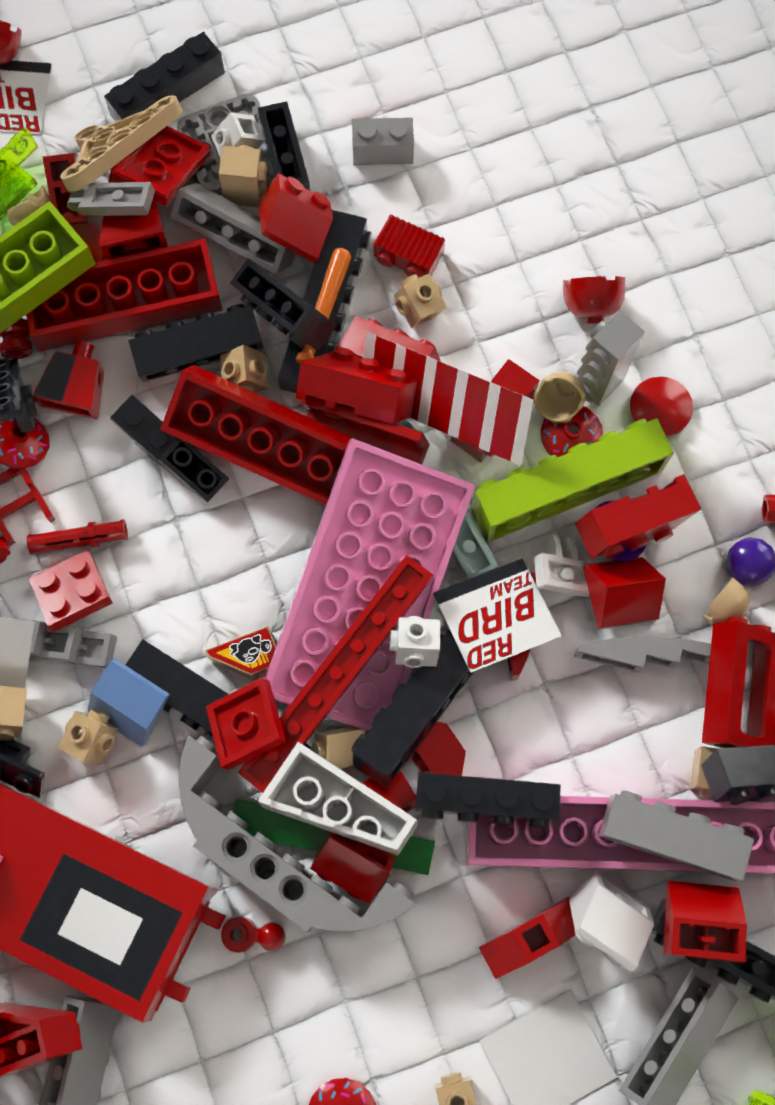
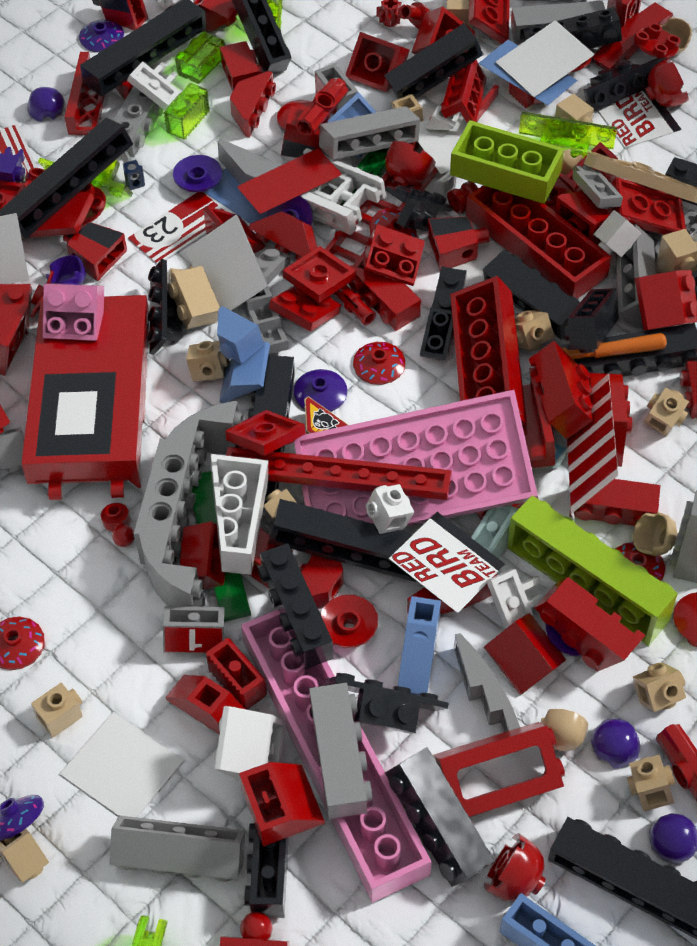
camera: 65 degrees right, 20 degrees down
(43, 554) = (319, 274): none -> red plate
(64, 462) = (393, 254): none -> red slope
(89, 691) = (237, 335): none -> medium blue slope
(112, 493) = (388, 297): none -> red slope
(186, 216) = (617, 234): none -> white brick
(188, 646) = (330, 395): none -> dark purple dish
(189, 563) = (379, 363): none -> red dish
(438, 914) = (192, 628): none -> brick
(505, 729) = (354, 611): none -> red dish
(513, 893) = (236, 673): none -> red brick
(568, 691) = (419, 644): none -> medium blue slope
(630, 760) = (387, 707): none -> black bracket
(722, 489) = (659, 687): none -> tan brick

